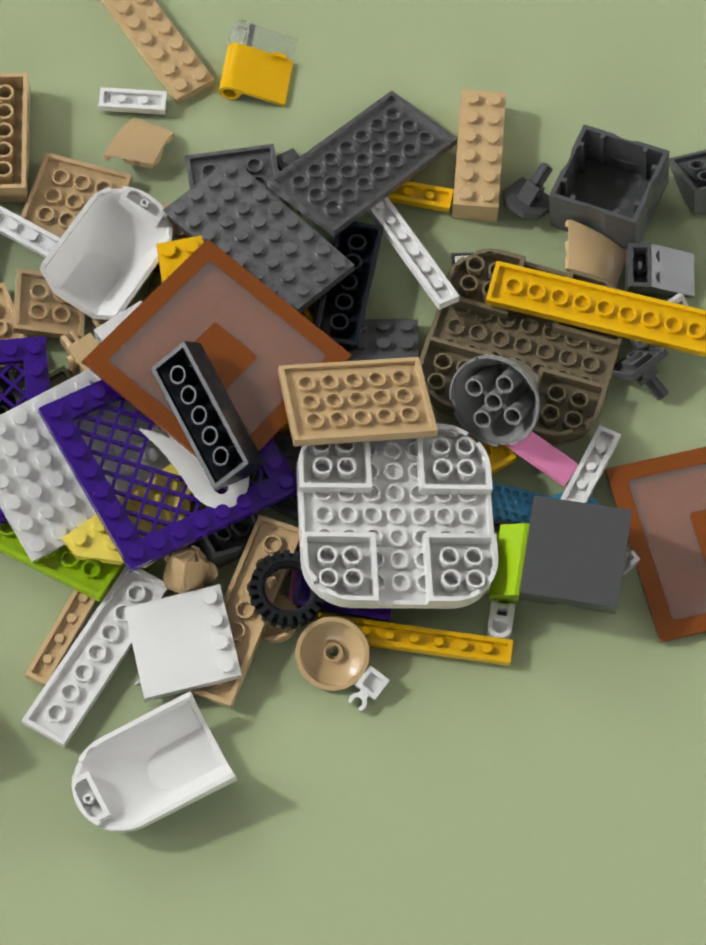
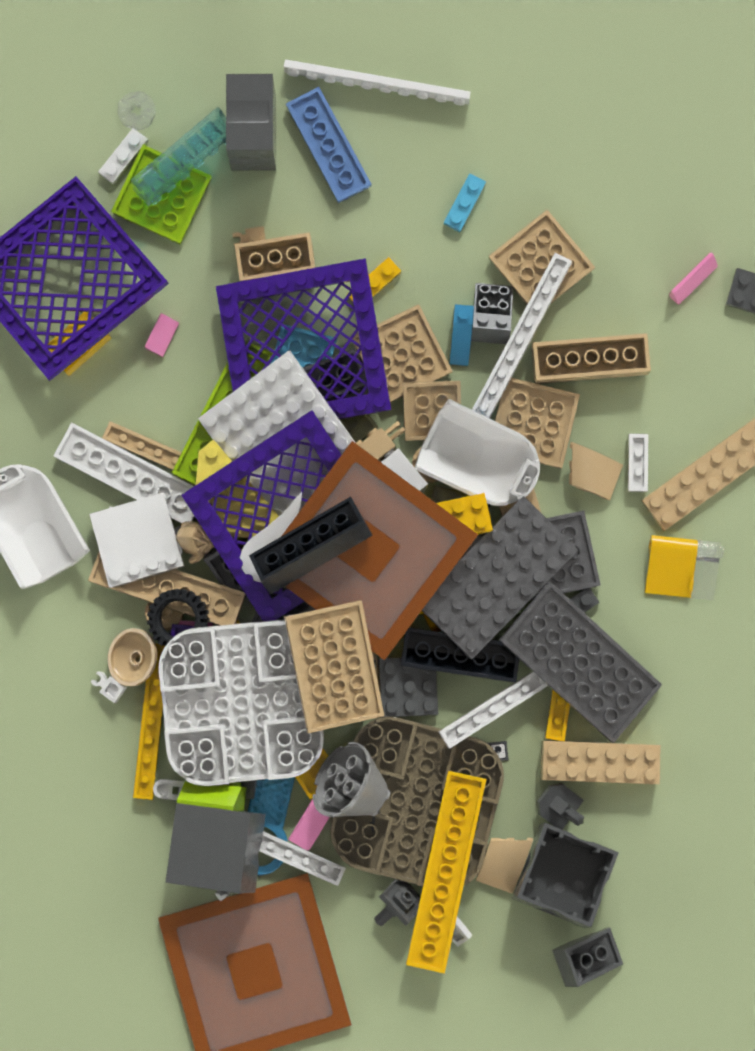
camera: 85 degrees right, 20 degrees up
(658, 271) = (492, 919): slope -> none

